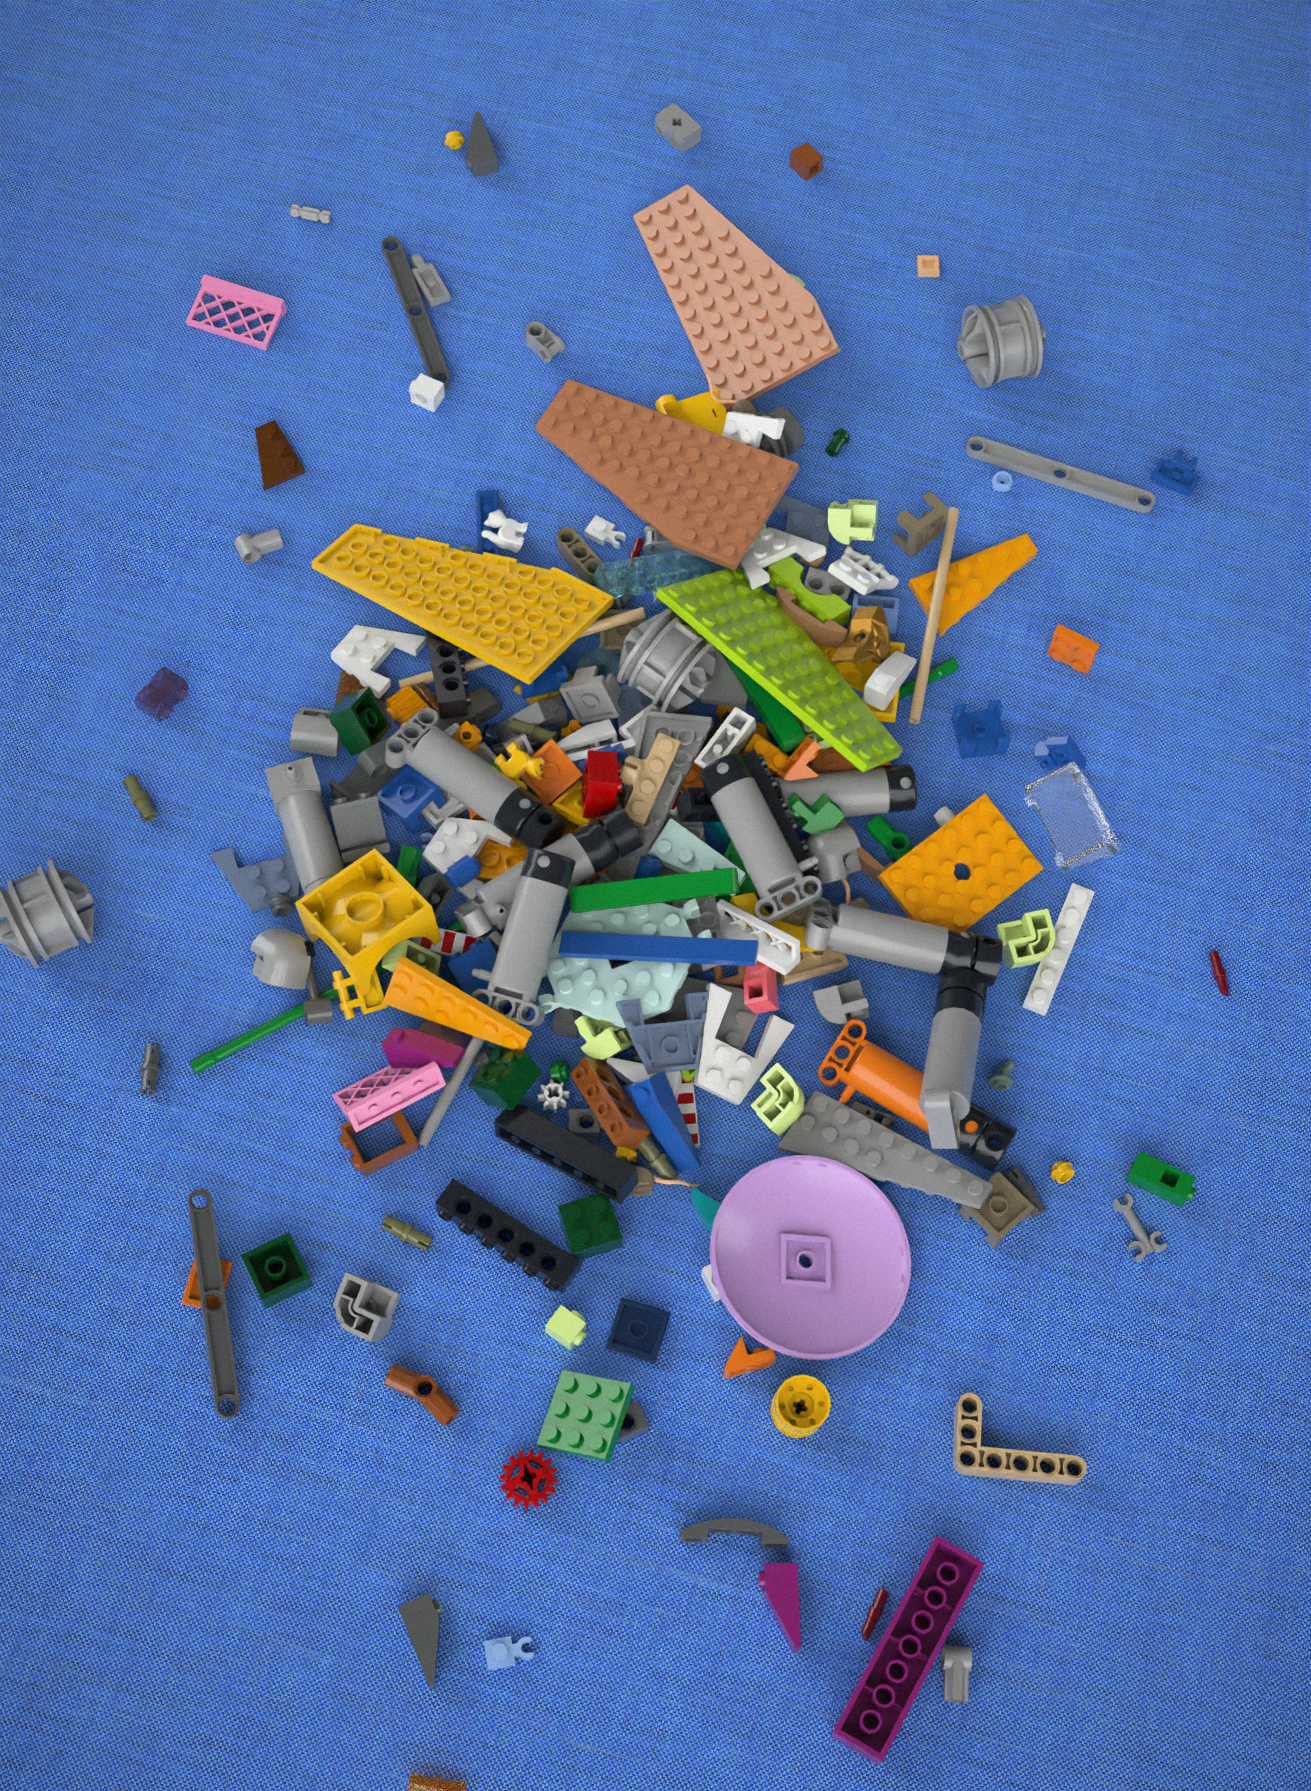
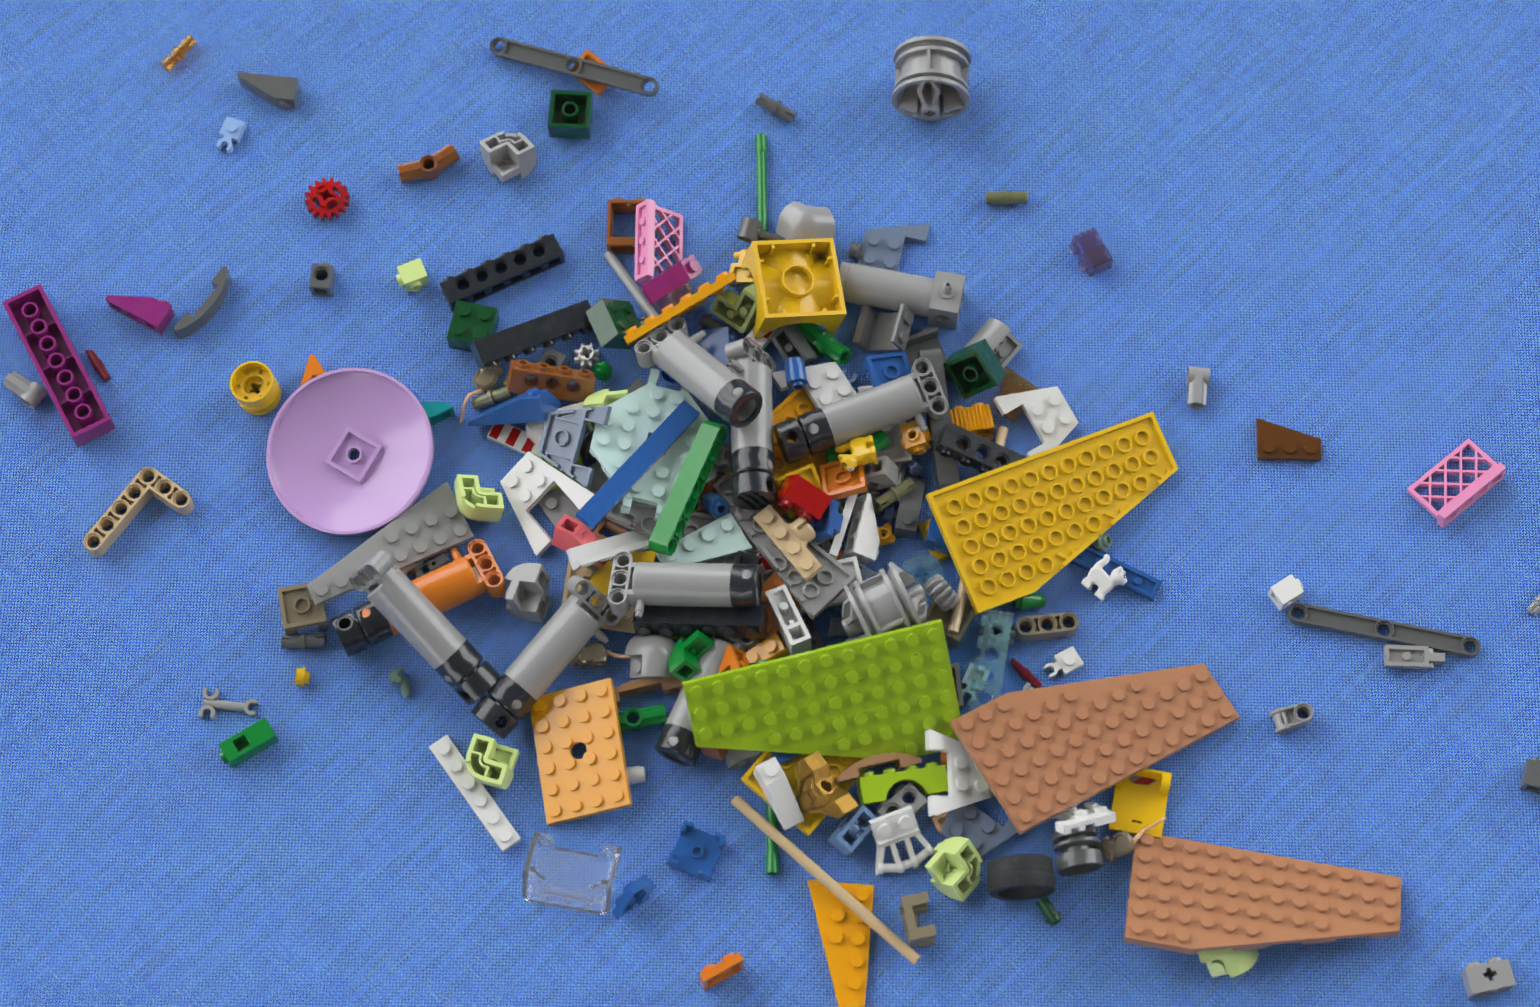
camera: 125 degrees right, 5 degrees up
(406, 1233) = (547, 211): olive pin -> none
(585, 1416) = (342, 252): plate -> none
(592, 696) = (906, 544): light grey panel -> none
(614, 632) = (941, 592): none -> light grey gear
(638, 1330) = (381, 321): dark blue plate -> none
(831, 460) = (1020, 877): none -> black tyre
(1219, 973) = (377, 905): dark red piece -> none

